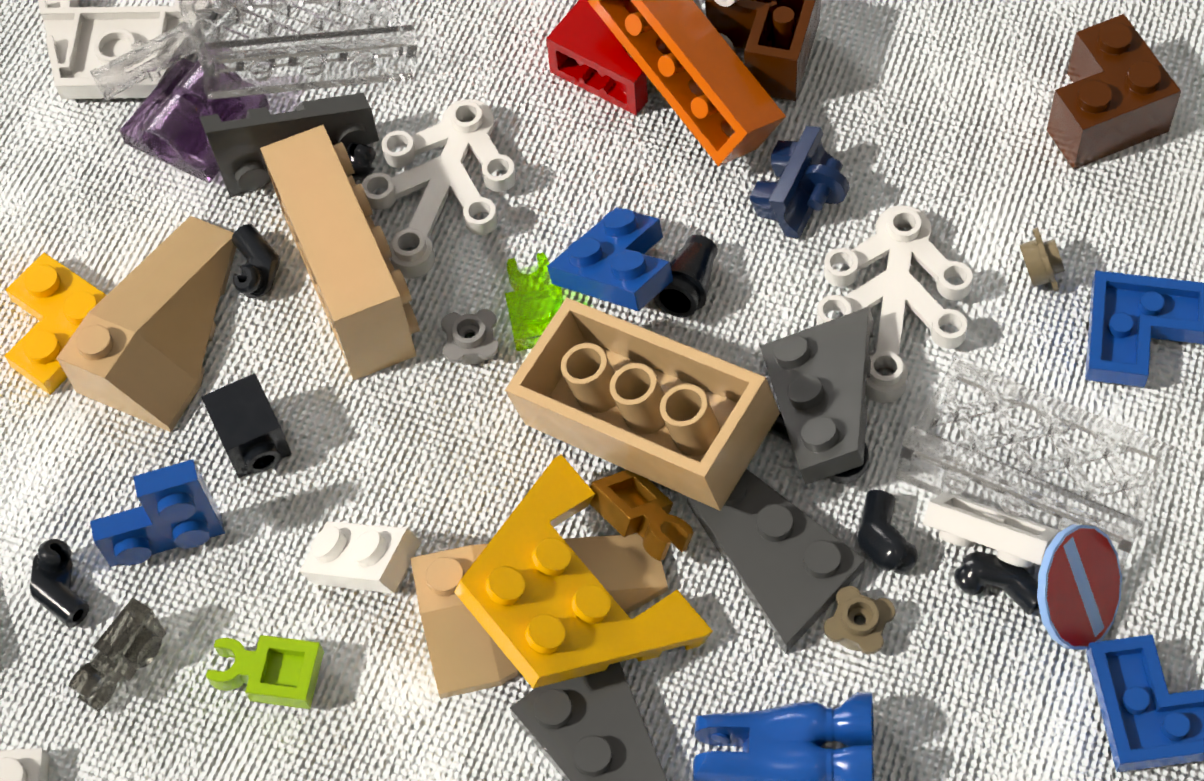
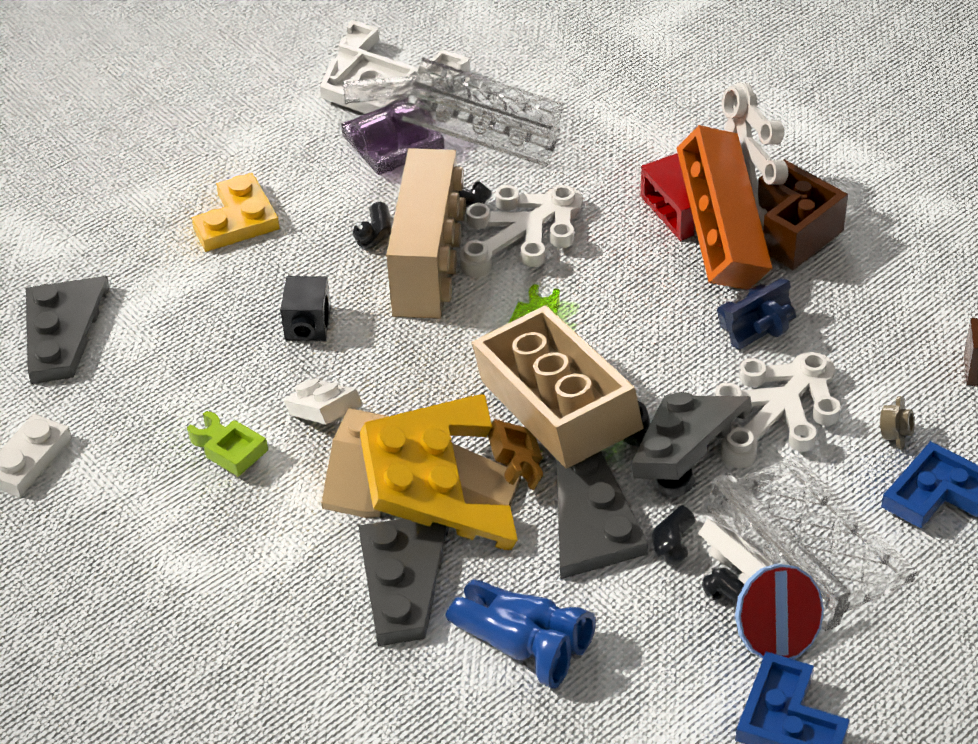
camera: 25 degrees right, 15 degrees down
(52, 581) = (136, 344): black arm -> none
(122, 649) = (150, 395): clear smoke plate -> none
(151, 332) = (287, 235): tan wedge -> none
(173, 514) = (225, 335): blue plate -> none
(239, 141) = (478, 162): dark grey wing -> none
(470, 350) = (479, 318): light grey plate -> none
(612, 261) = (599, 307): blue plate -> none
(691, 277) = (642, 338): black cone -> none
(859, 637) = (615, 586): dark tan plate -> none

